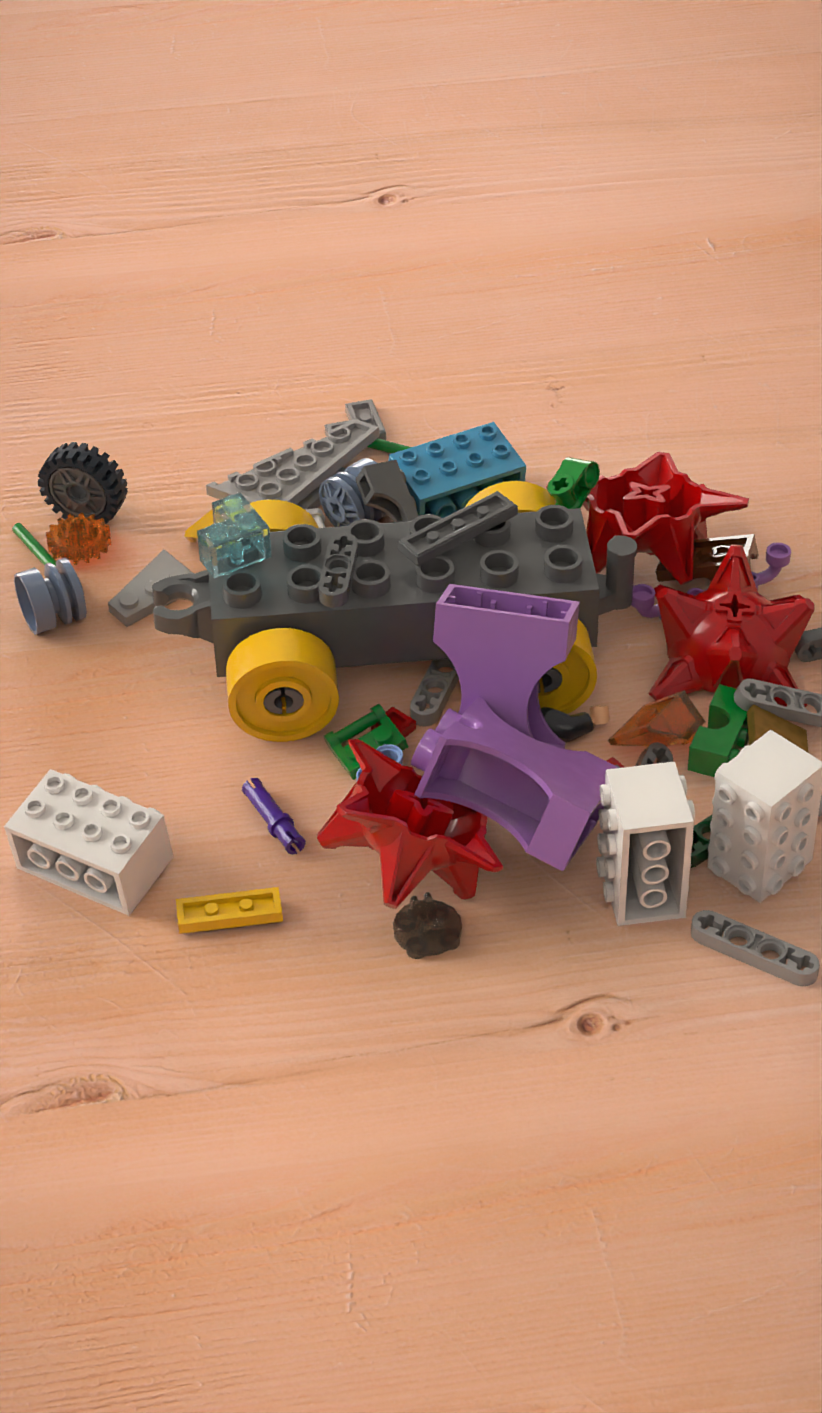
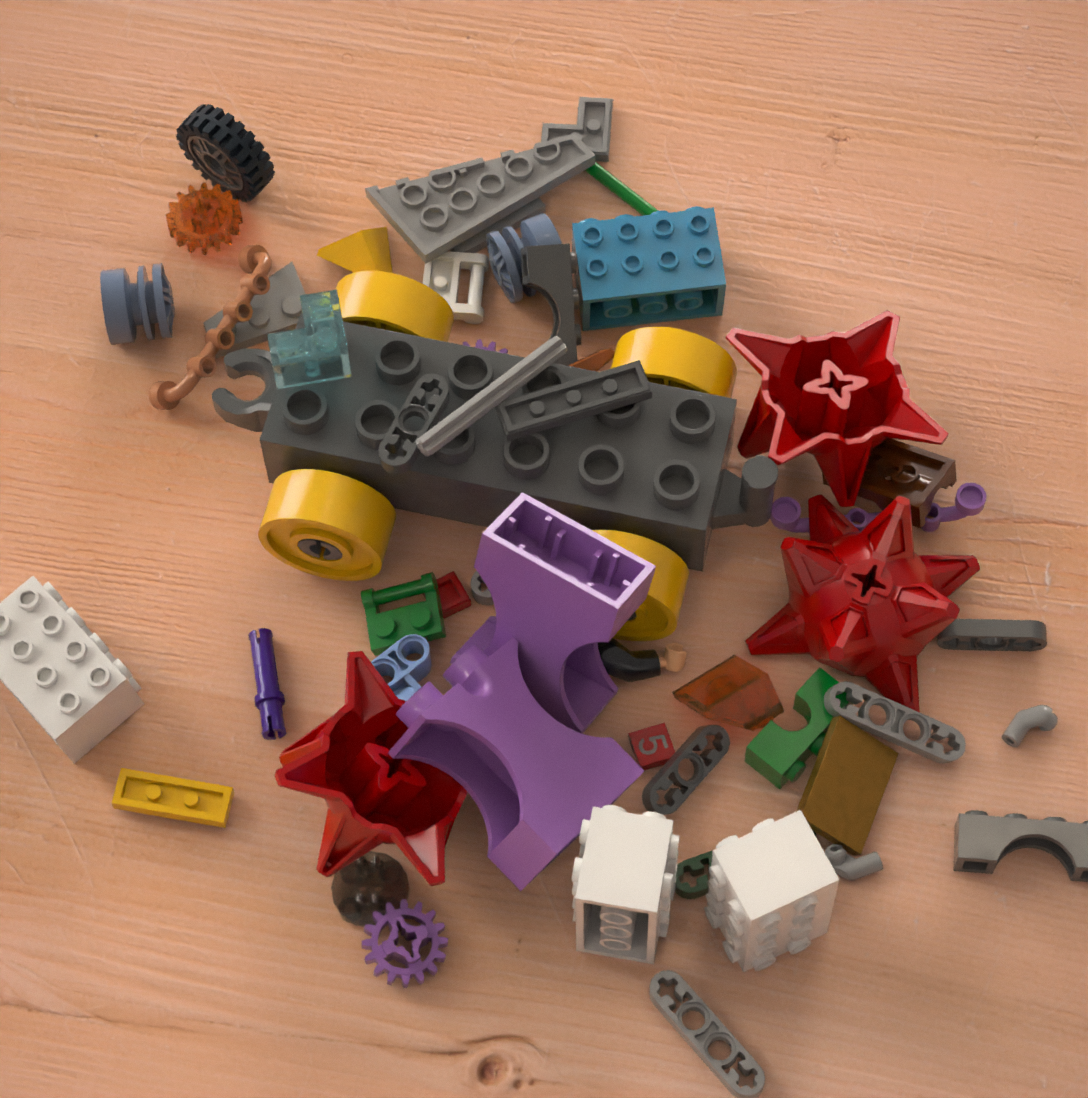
camera: 20 degrees right, 20 degrees up
(32, 544) = (162, 232): green bar -> none
(141, 560) = (255, 262): none -> nougat bar
(392, 537) = (491, 396): none -> light grey axle
(476, 951) = (420, 935): none -> medium lavender gear
(573, 482) = (748, 350): green piece -> none

